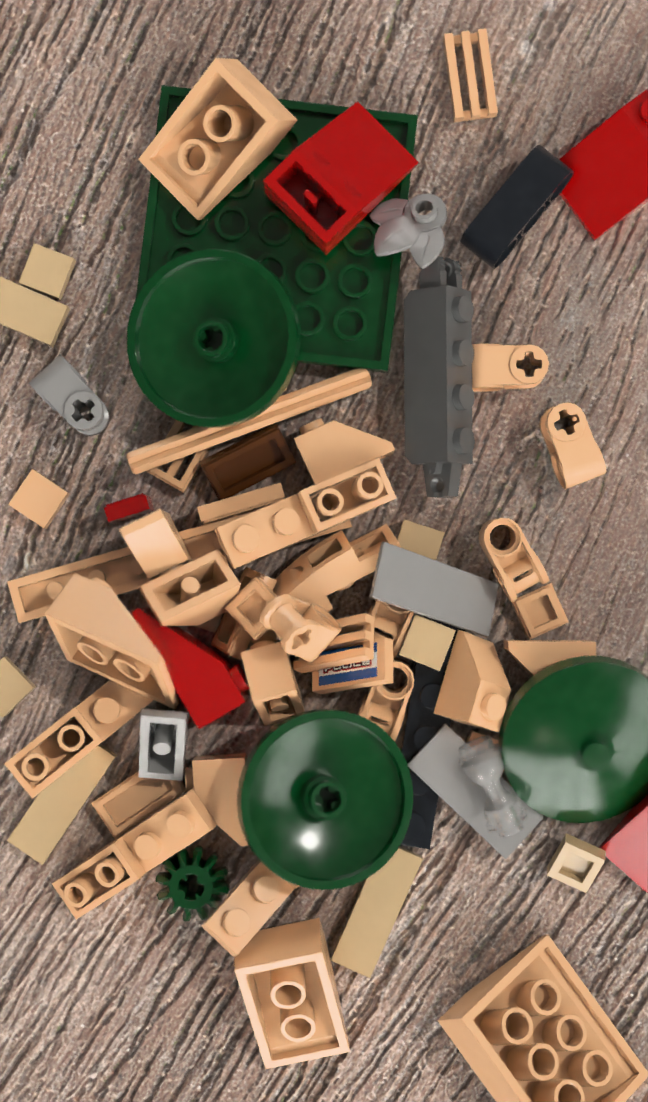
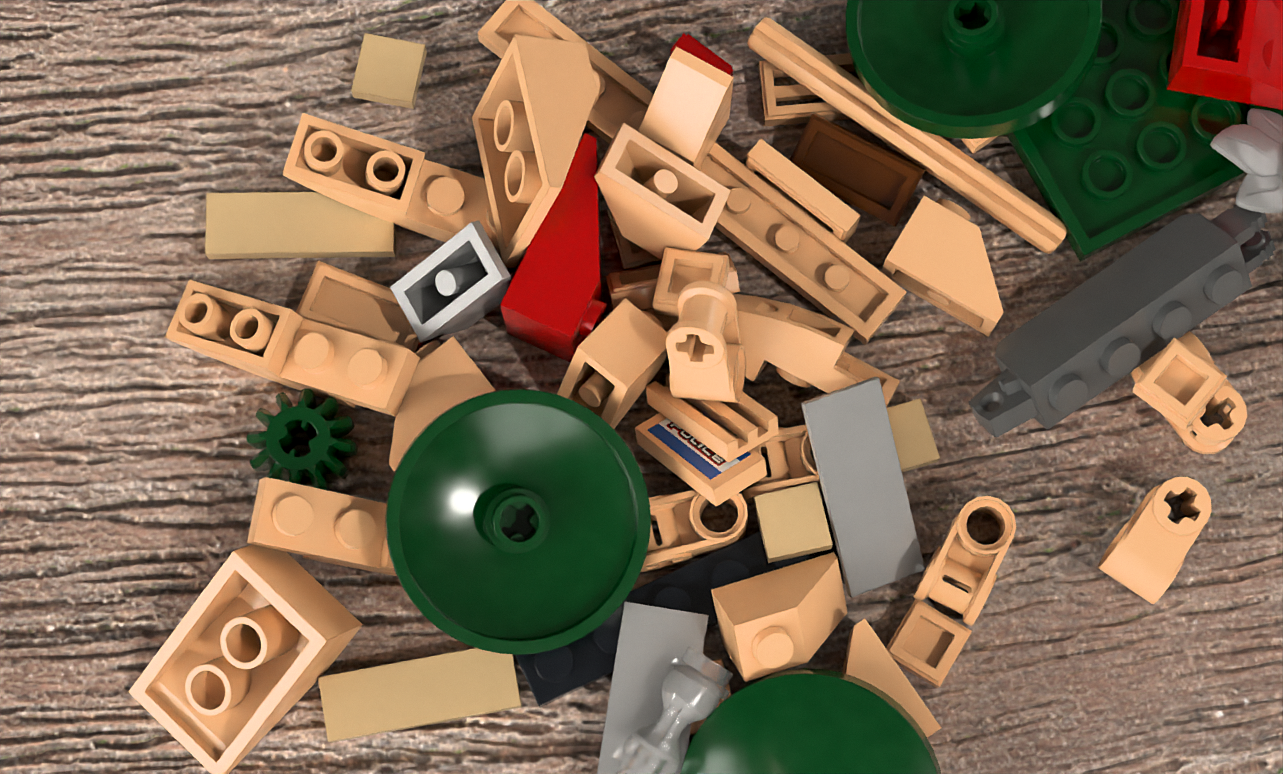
camera: 55 degrees right, 10 degrees down
(305, 514) = (842, 269): light nougat slope -> none
(500, 374) = (1179, 383): none -> light nougat tile

